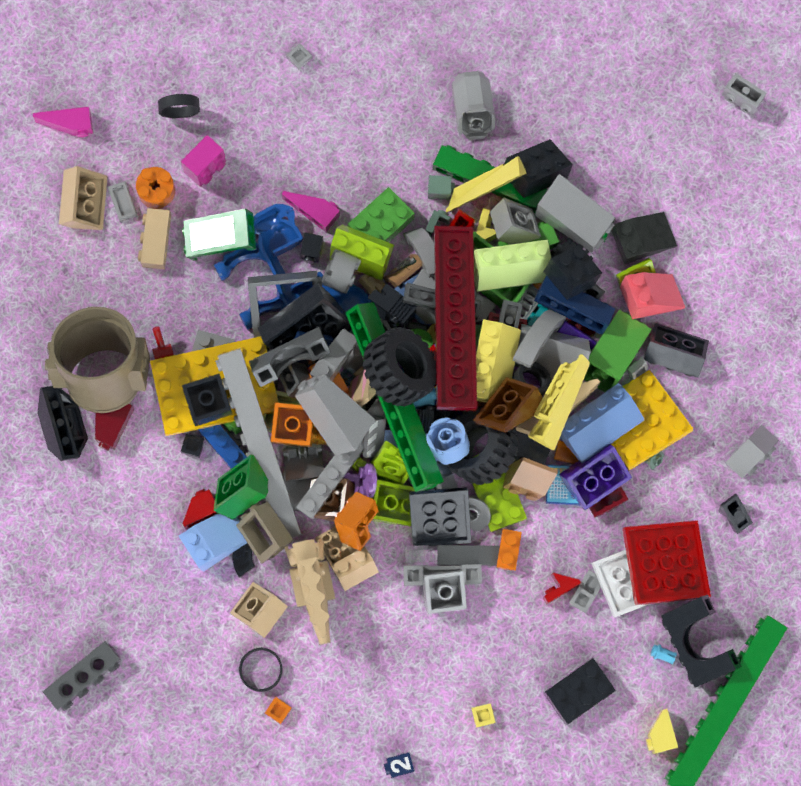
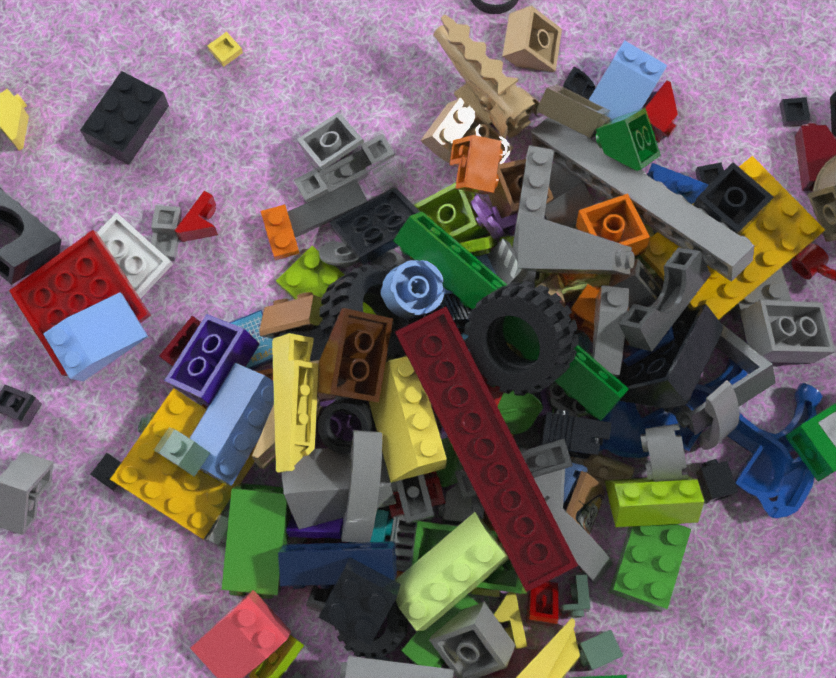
camera: 155 degrees right, 5 degrees down
(105, 464) = (794, 111): none -> black plate
(213, 311) = (788, 331): none -> light grey brick
(295, 271) = (724, 409): none -> light grey slope
(315, 209) = (735, 534): dark pink slope -> none
(642, 418) = (182, 451): none -> sand green slope
(663, 654) = (44, 204): medium azure pin -> none
(665, 527) = (95, 337): none -> light blue slope
(676, 350) = (177, 582): black slope -> none
(691, 443) = (105, 470): none -> black plate

